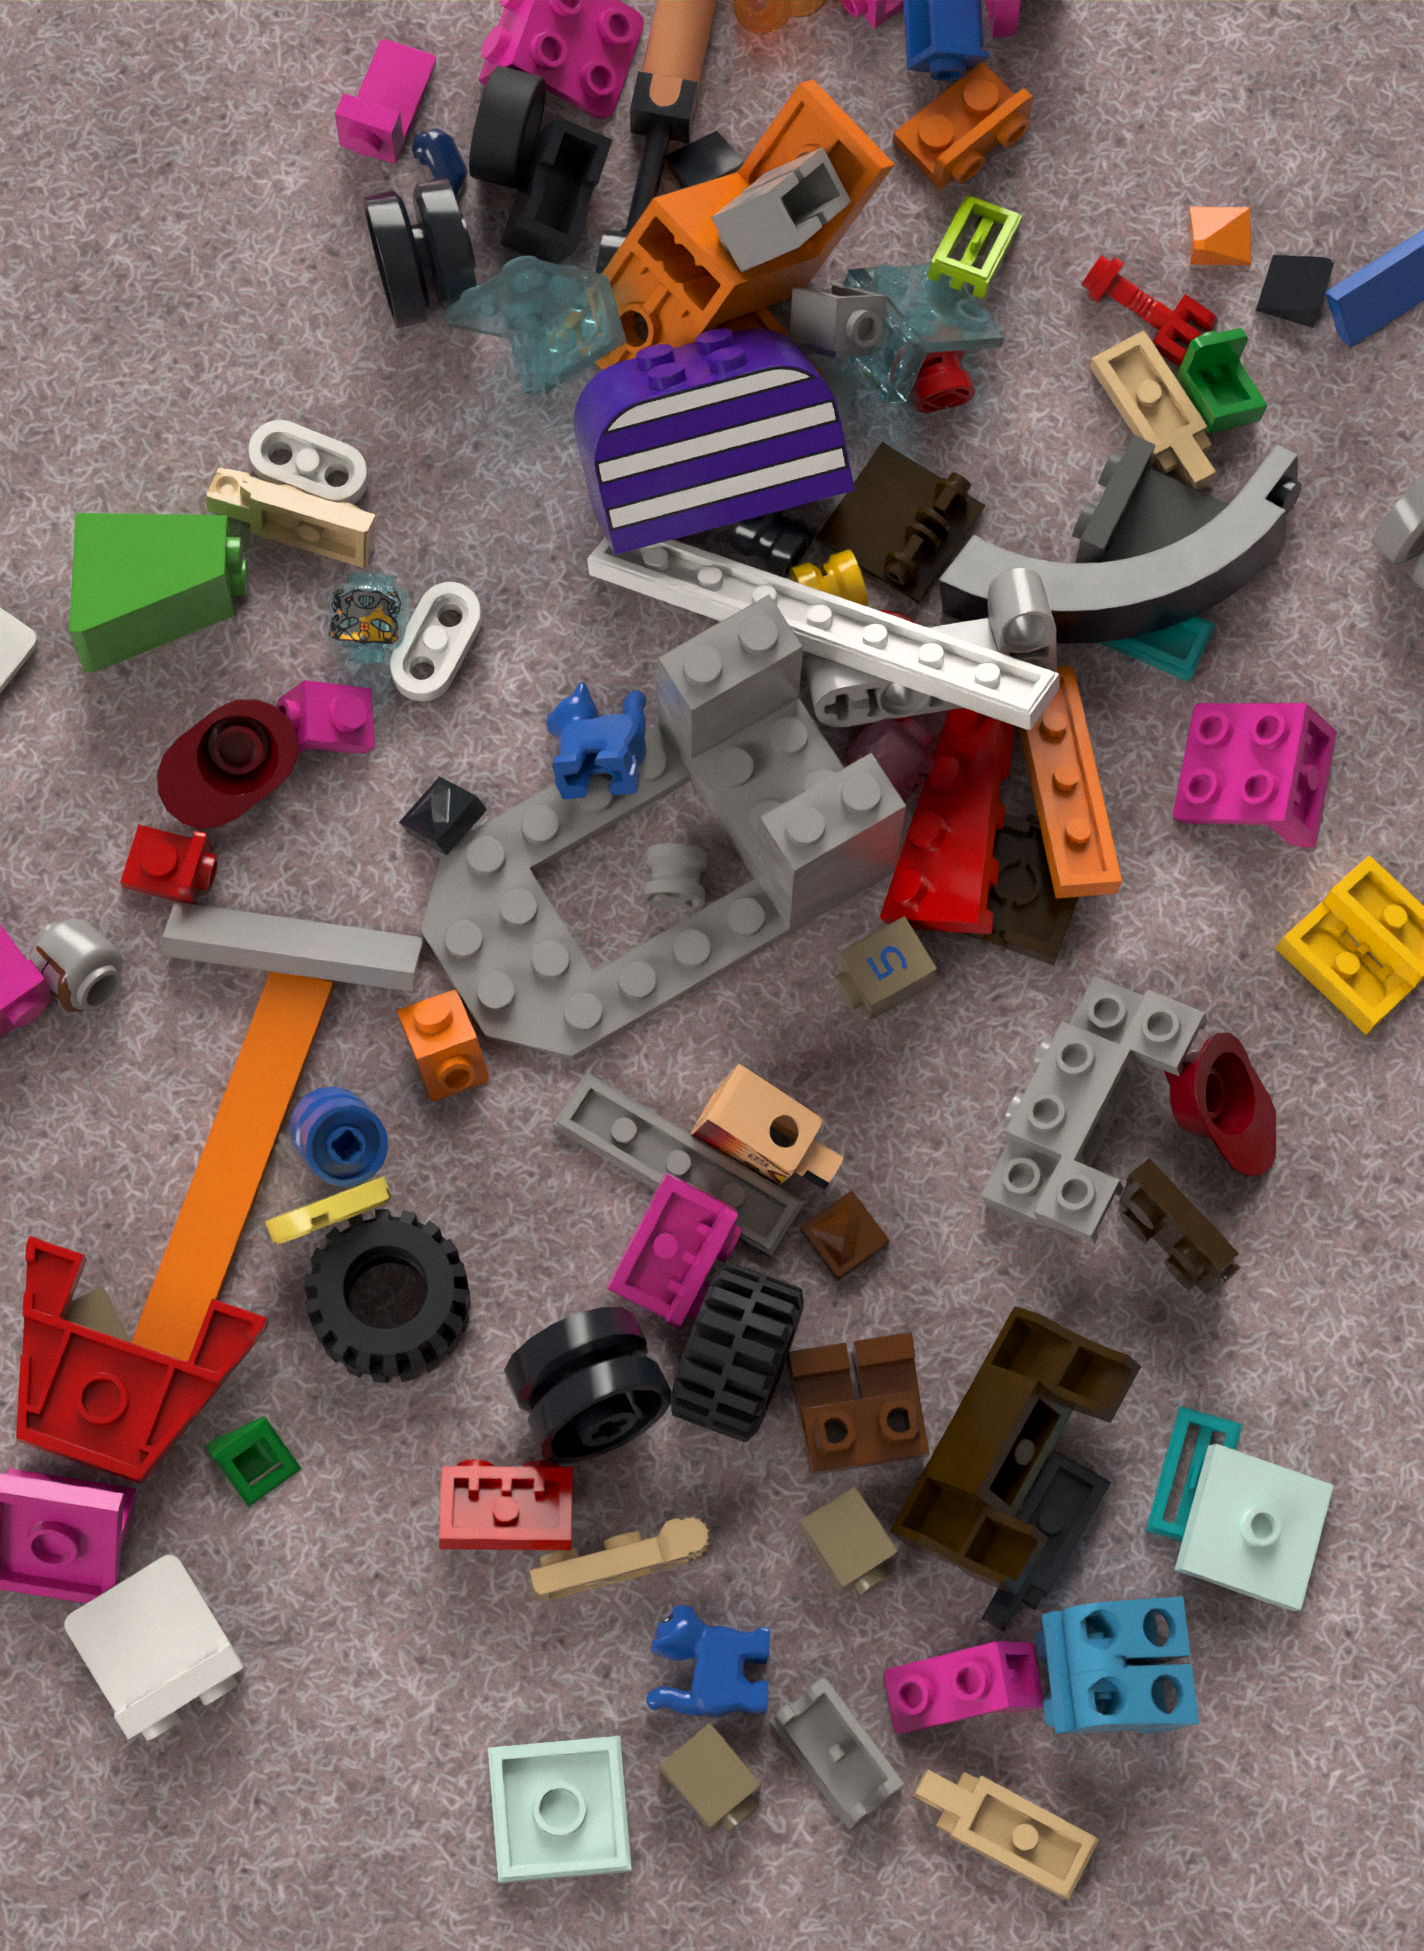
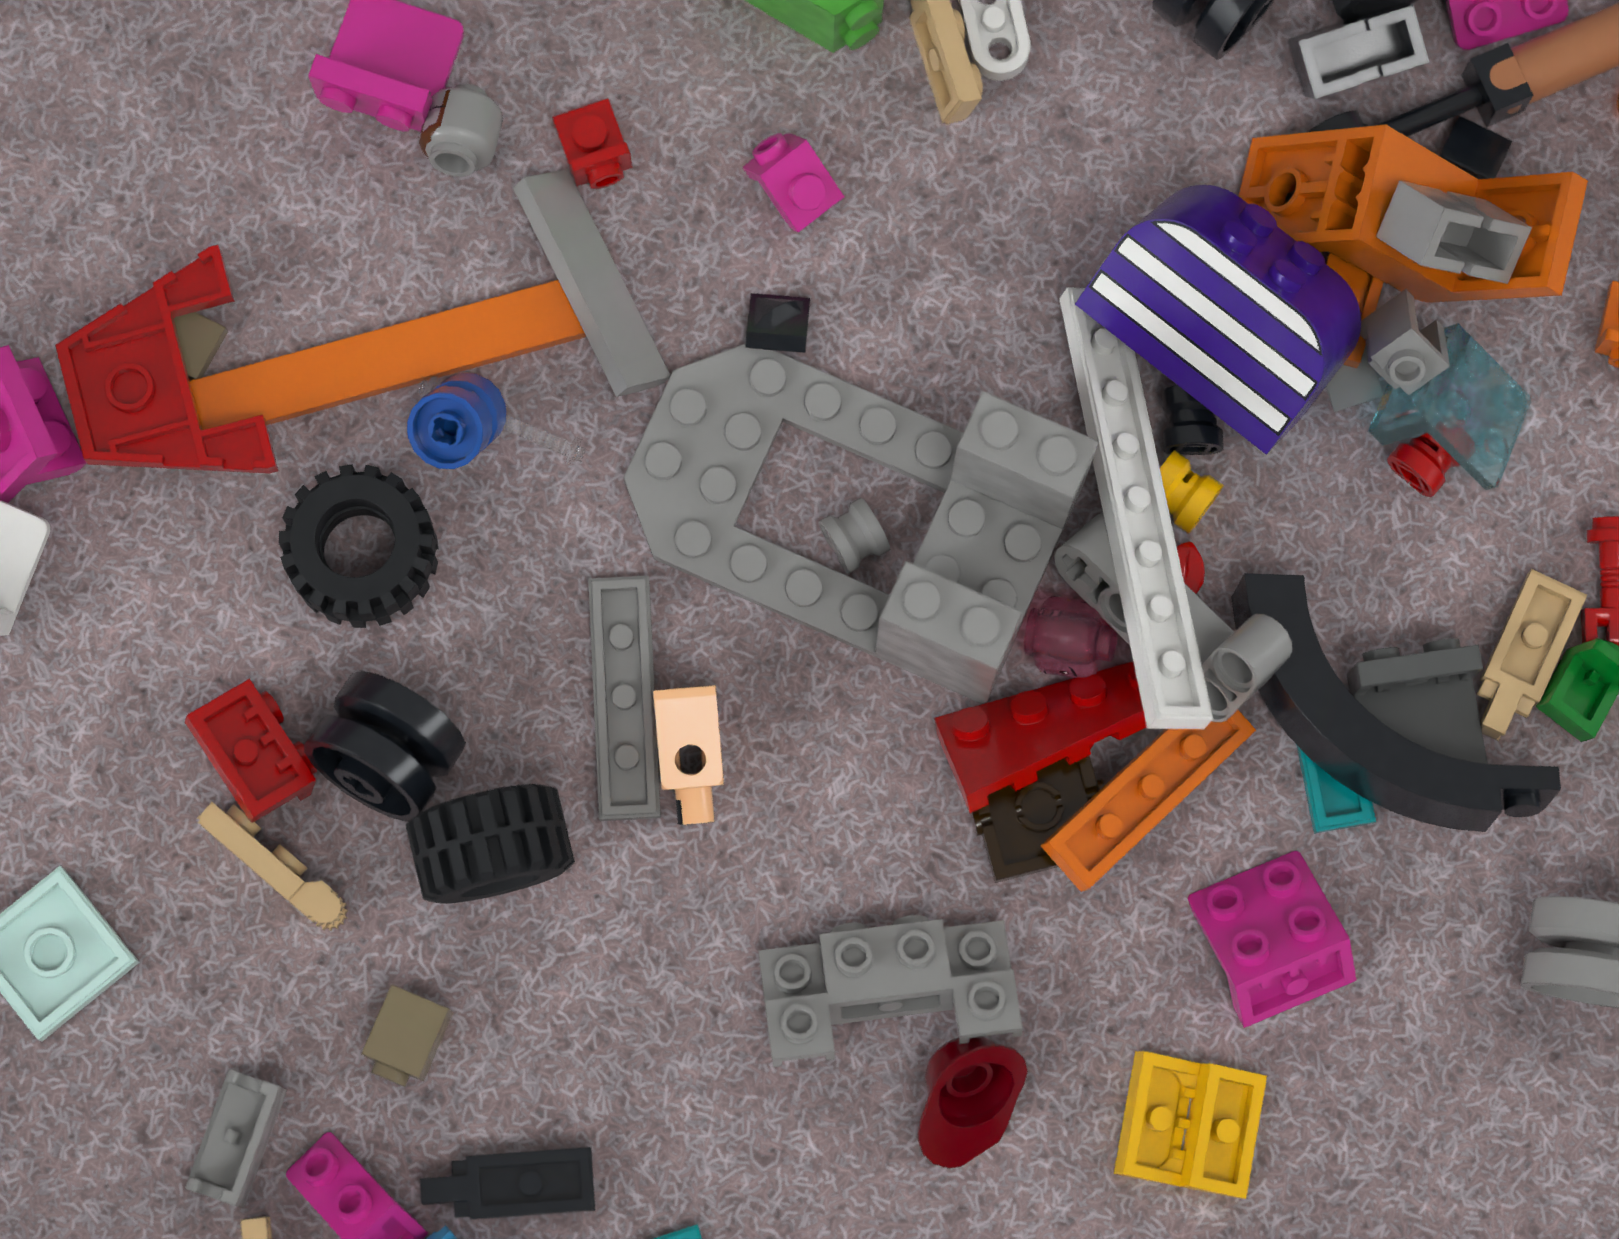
camera: 55 degrees right, 5 degrees up
(227, 763) = (697, 128): dark red piece -> none
(248, 1454) = (169, 527): green slope -> none
(329, 1210) = (391, 454): light yellow tile -> none
(368, 616) = (898, 153): head -> none
(434, 643) = (916, 213): white plate -> none
(444, 1045) = (593, 450): orange bracket -> none
(549, 312) = (1249, 124): clear light blue bracket -> none
(597, 743) = (915, 399): blue animal -> none
(675, 1250) = (548, 739): dark pink bracket -> none
(712, 1780) = (147, 1055): dark tan brick -> none
(718, 1676) = (237, 1003): blue animal -> none
(844, 1235) = (656, 866): reddish brown tile -> none
(866, 1431) = (492, 973): reddish brown hips -> none
(884, 969) = (891, 750): dark tan brick -> none
(902, 521) = (1282, 512): dark brown hinge -> none
(964, 270) = (1525, 416): lime tile -> none
(1000, 1442) = (562, 1101): dark brown bracket -> none
(1164, 1213) = (822, 1149): dark brown plate -> none

